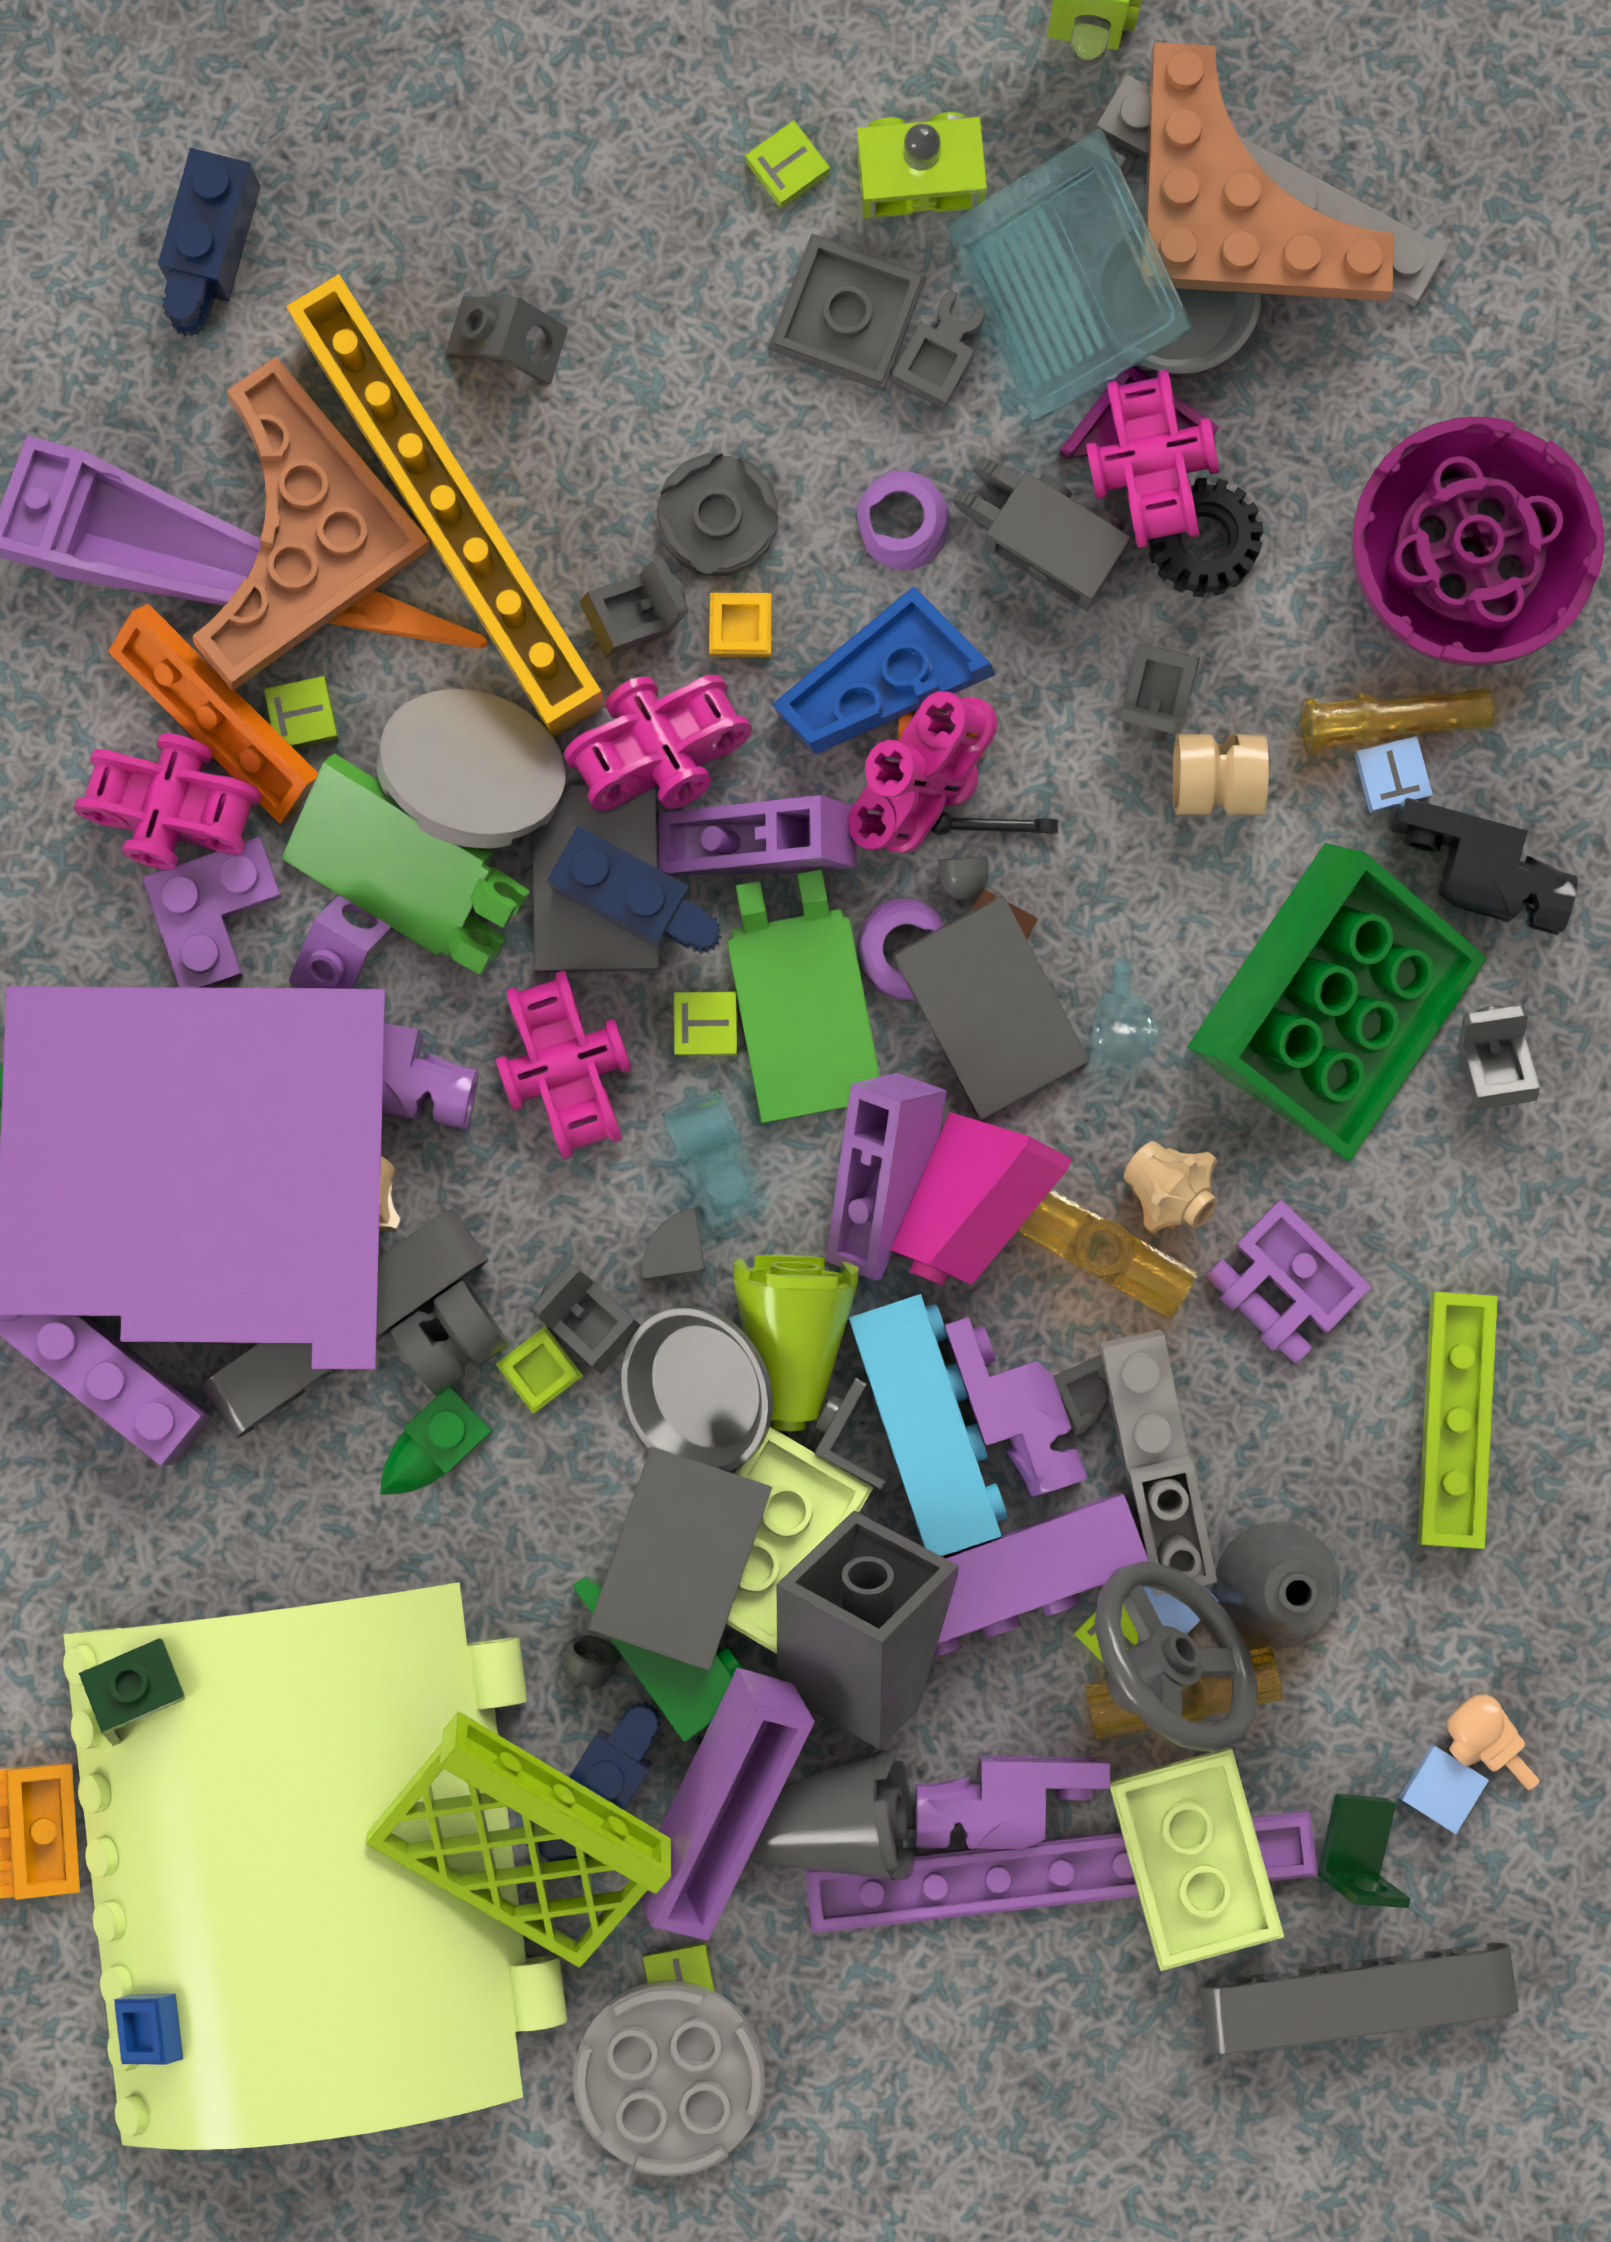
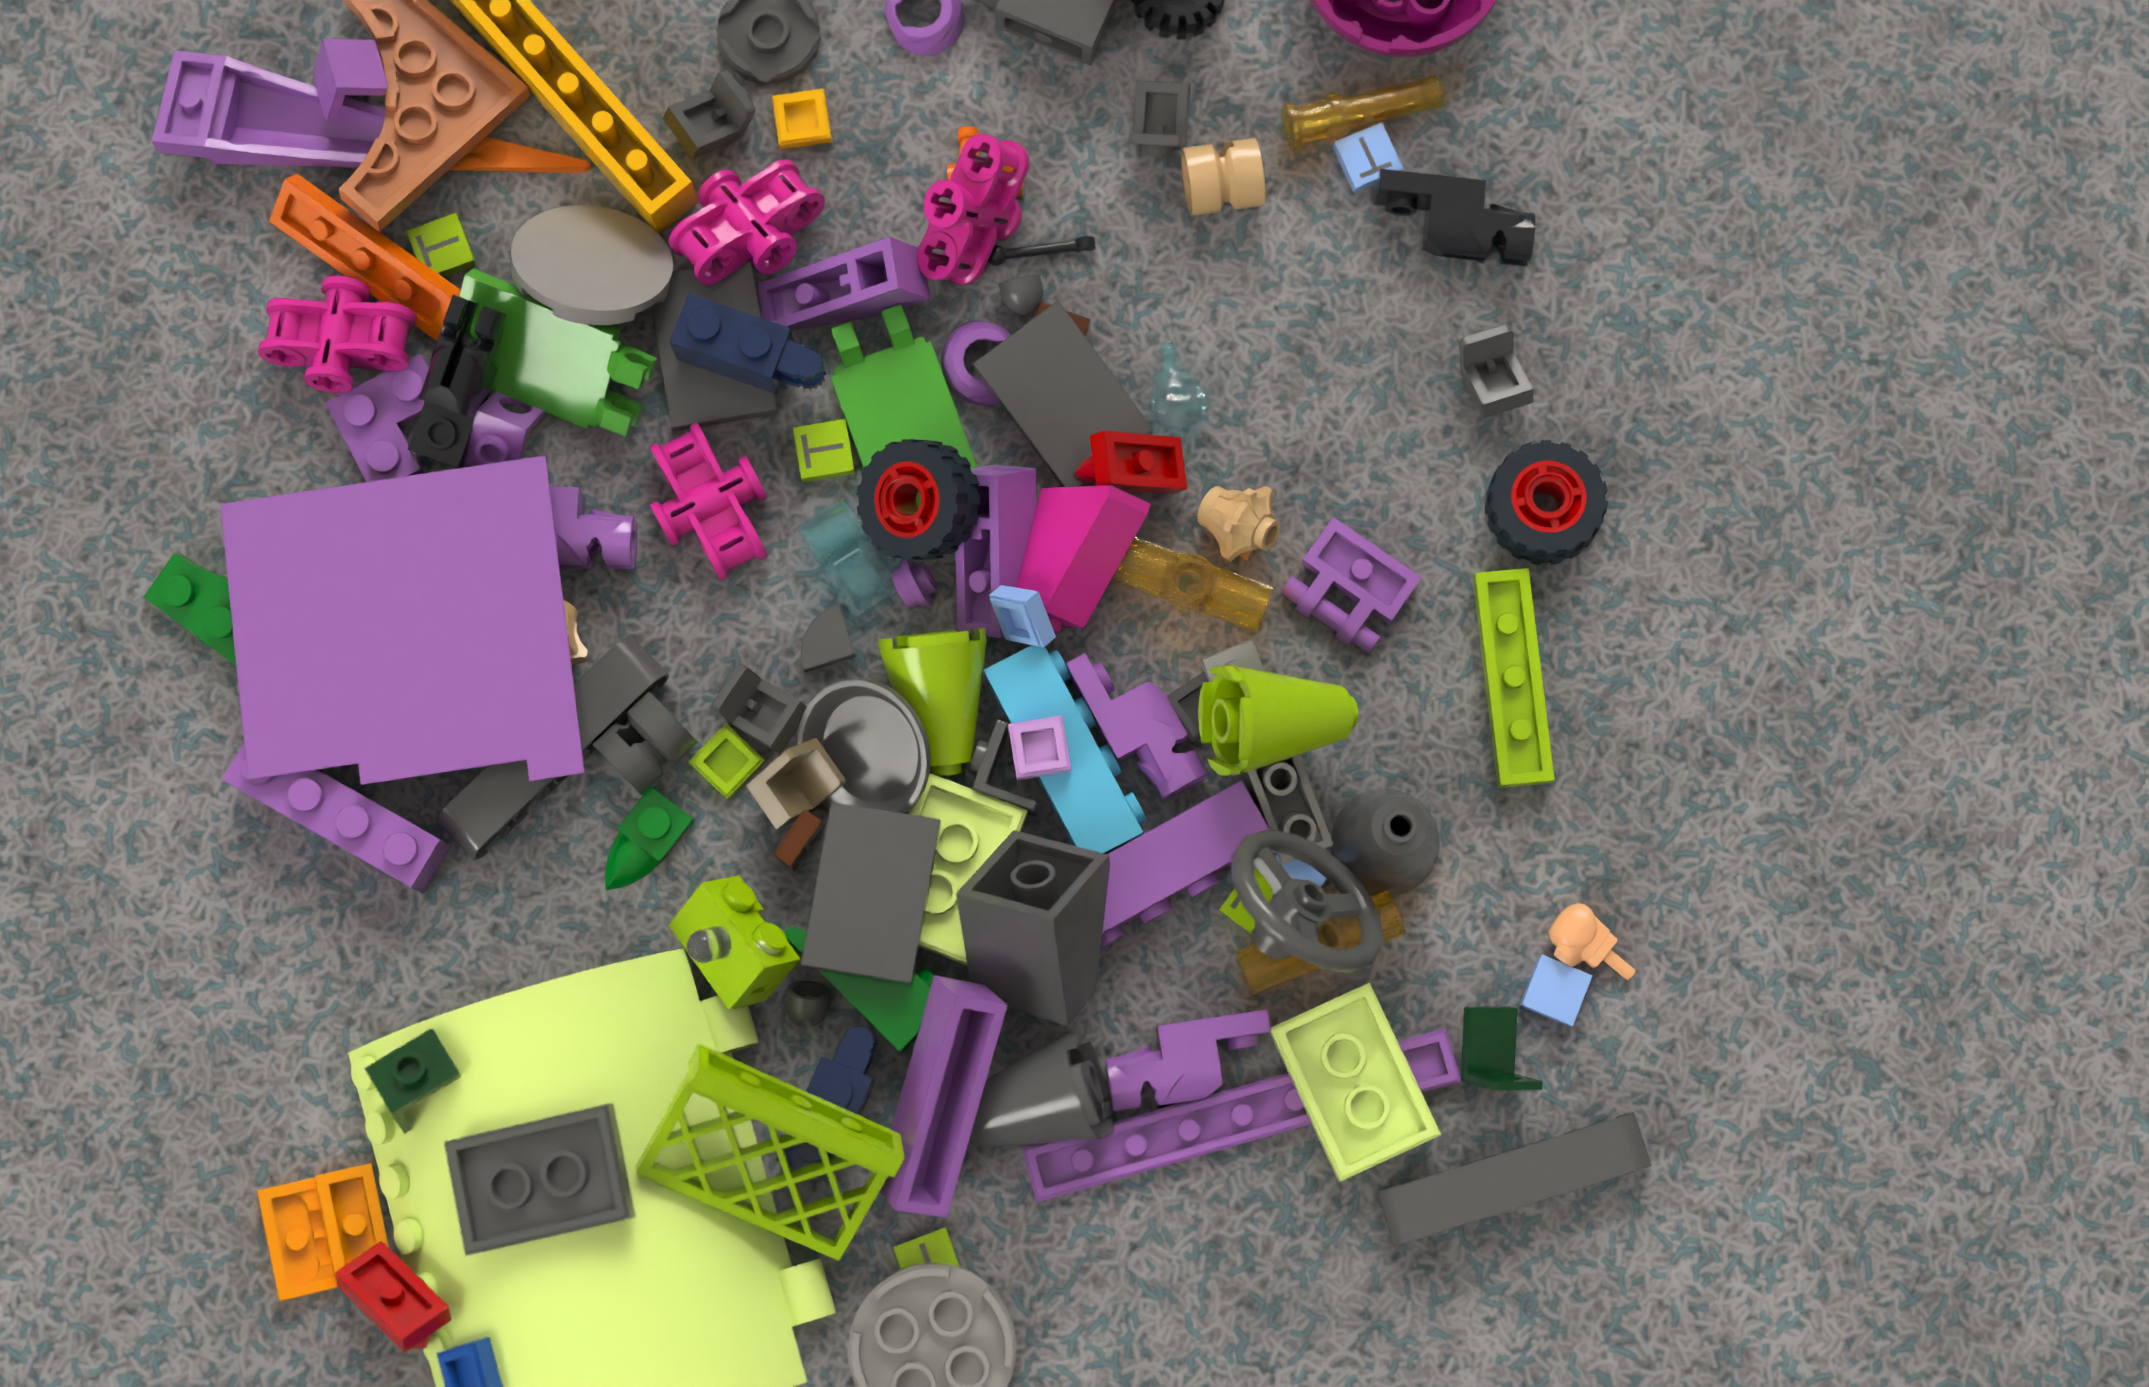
camera: 15 degrees left, 5 degrees down
(75, 1927) = (393, 1297): none -> red tile
(222, 492) = (347, 69): none -> medium lavender panel
(257, 1833) = (539, 1179): none -> dark grey tile
(296, 884) = (457, 382): none -> black plate
(514, 1586) = (733, 943): none -> lime piece
(607, 1477) = (799, 840): none -> reddish brown tile
(614, 1412) = (796, 783): none -> dark tan panel
(785, 1199) = (914, 584): none -> medium lavender plate
(837, 1102) = (946, 504): none -> black wheel
(882, 674) = (925, 139): blue wing -> none
(898, 1420) = (1039, 747): none -> lavender tile
(903, 1263) = (1022, 616): none -> light blue tile
(1061, 1104) = (1134, 462): none -> red tile
(1168, 1434) = (1269, 717): none -> lime cone
(1338, 999) = (1353, 346): green slope -> none
(1569, 1211) = (1553, 471): none -> black wheel

